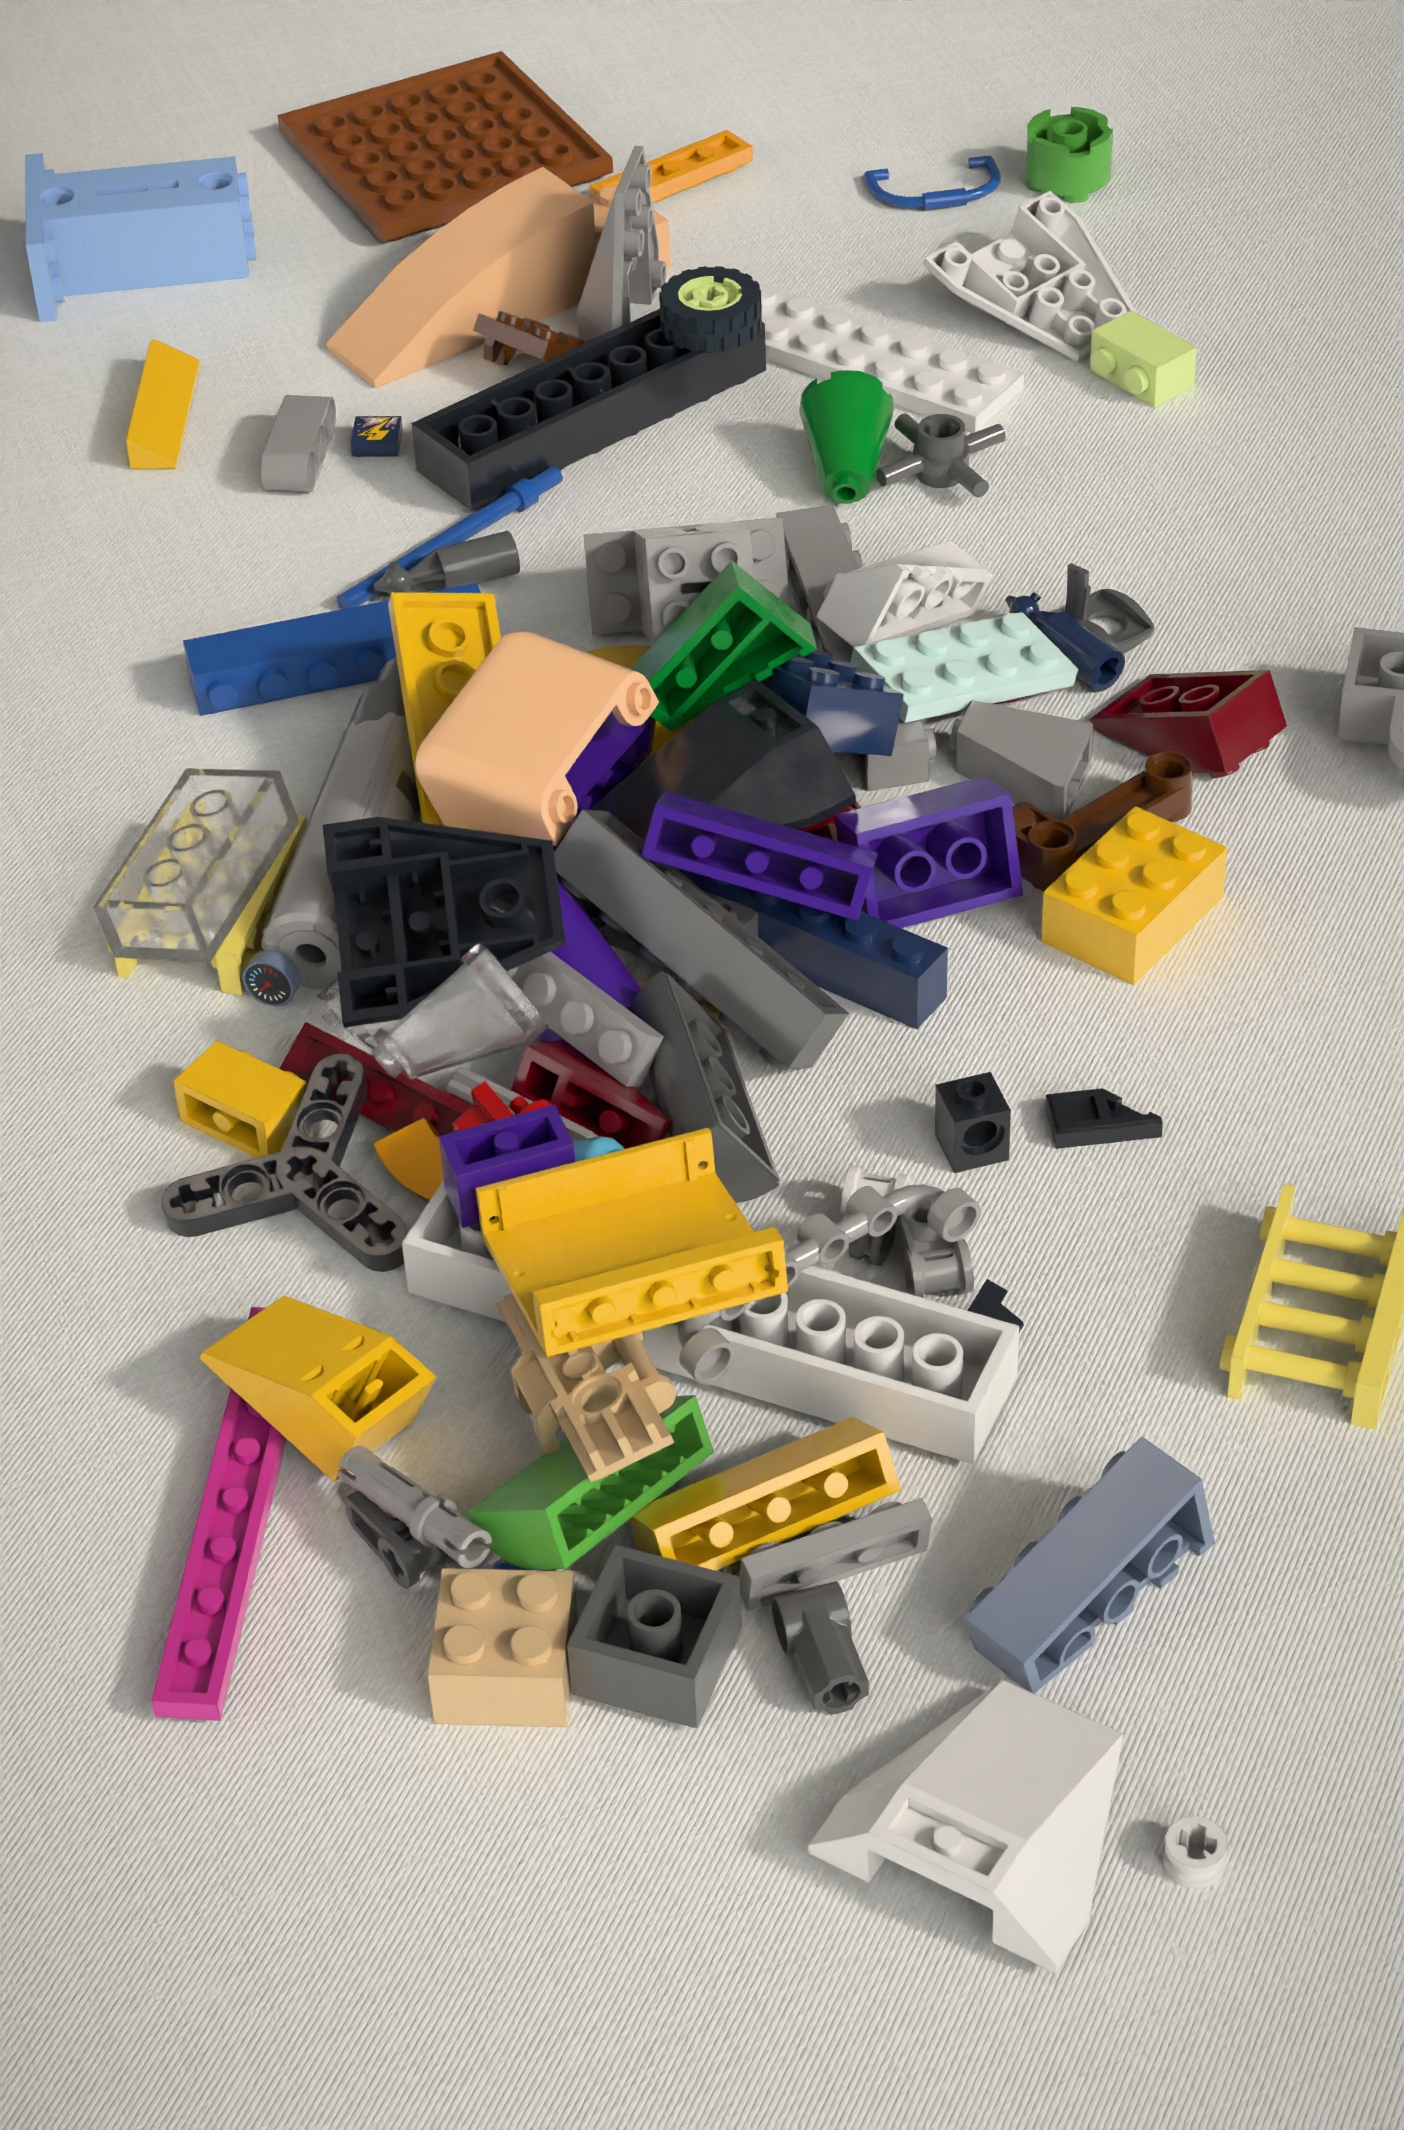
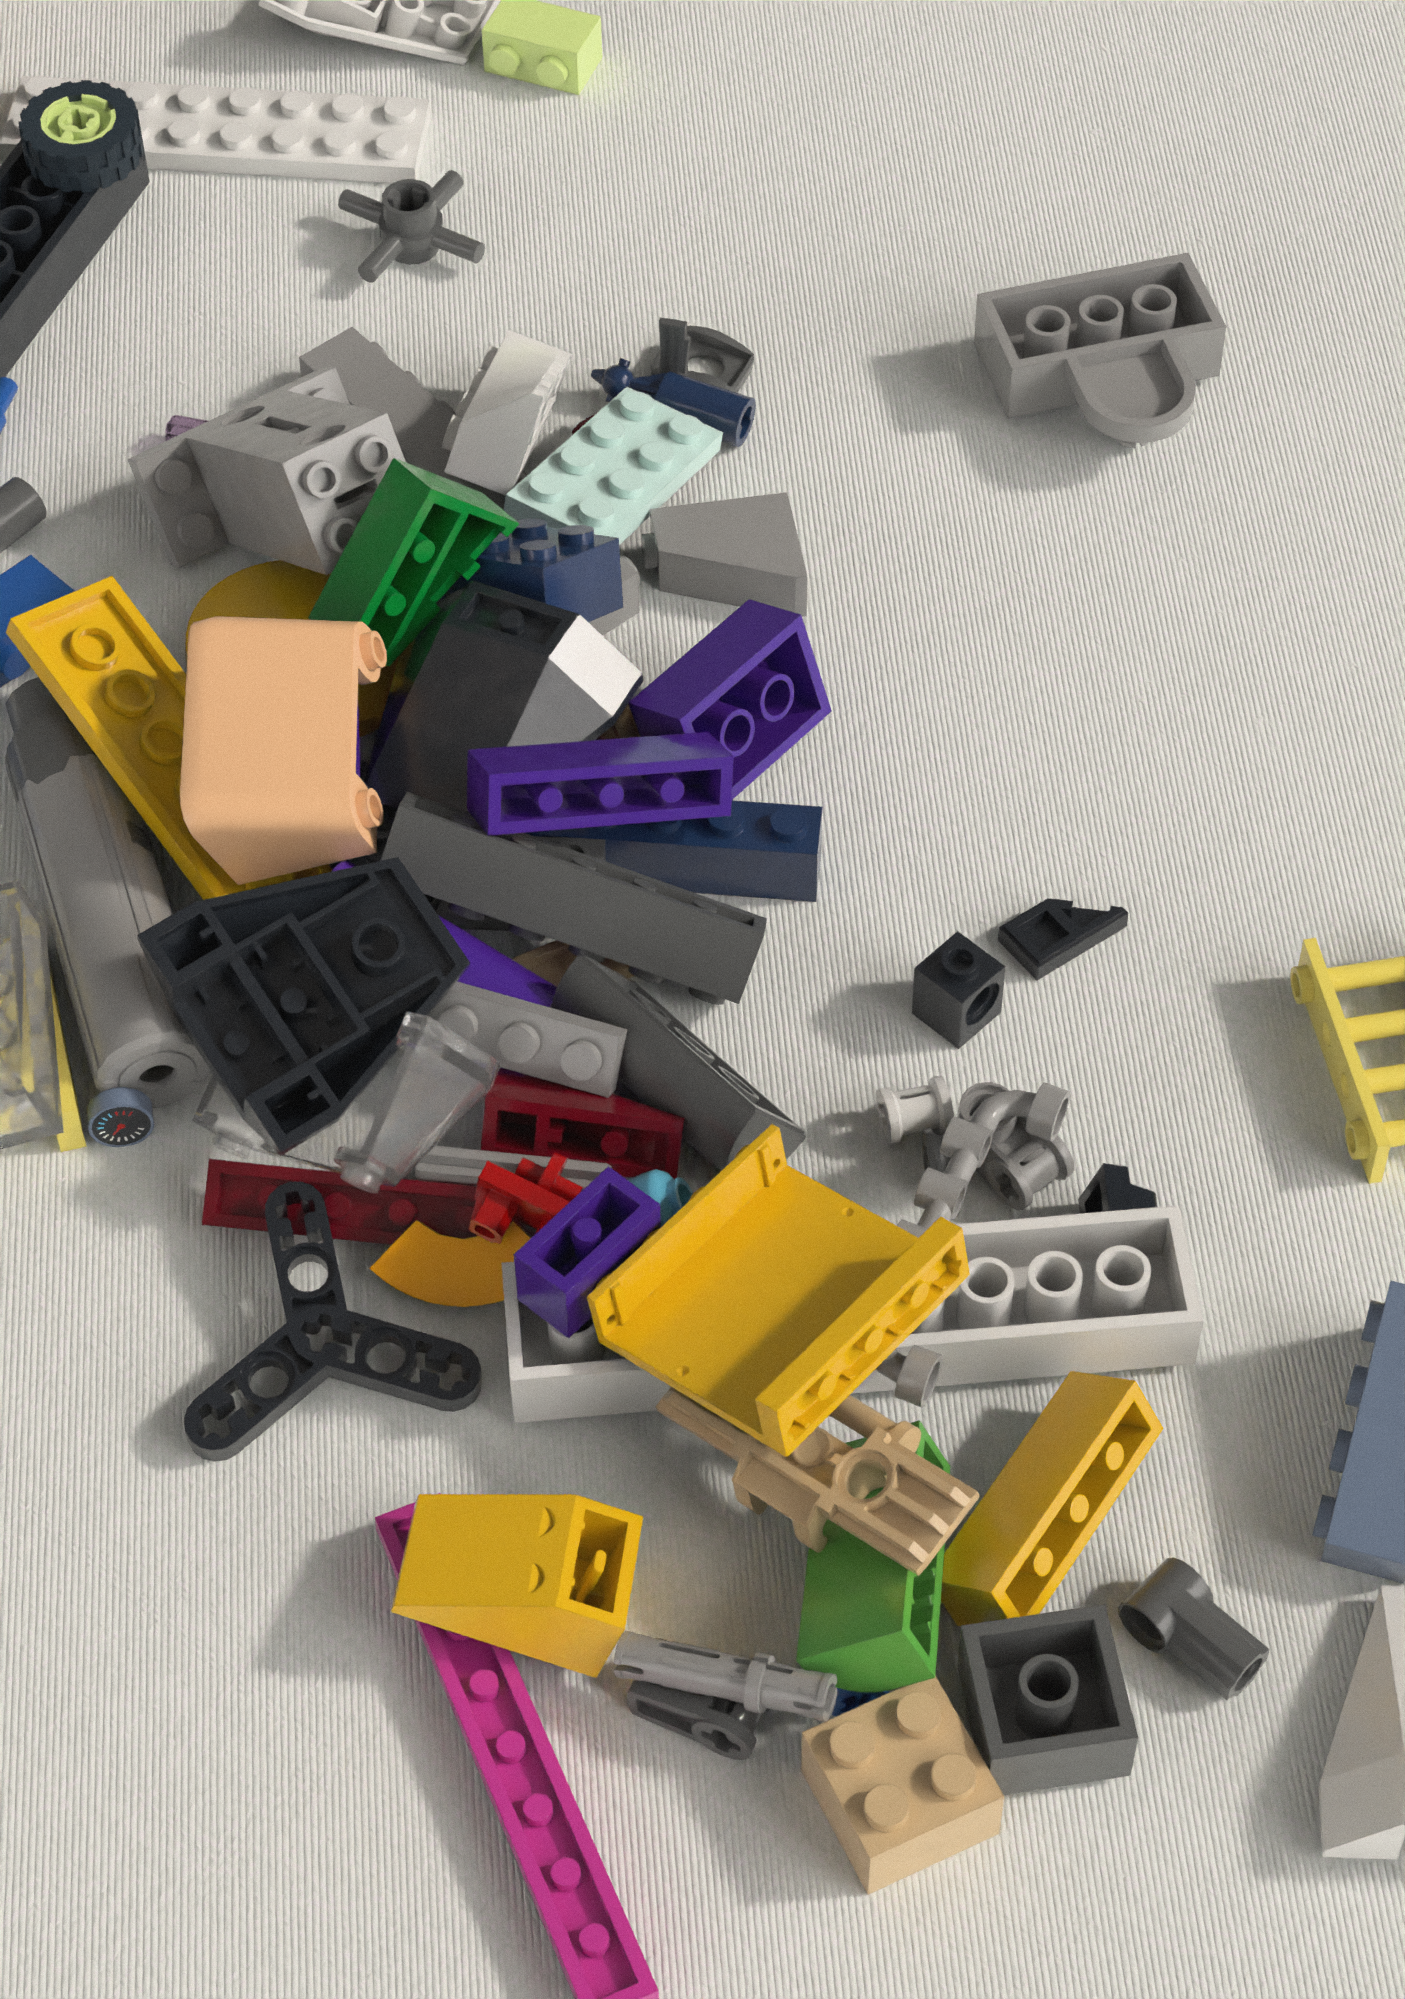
camera: 30 degrees left, 10 degrees up
(239, 1099) = (192, 1277): yellow brick -> none
(835, 1552) = (1141, 1521): light grey plate -> none
(846, 431) = (303, 235): green cone -> none
(1054, 845) = (863, 592): reddish brown piece -> none
(1133, 895) = (942, 671): yellow brick -> none
(1204, 715) = (865, 446): dark red slope -> none

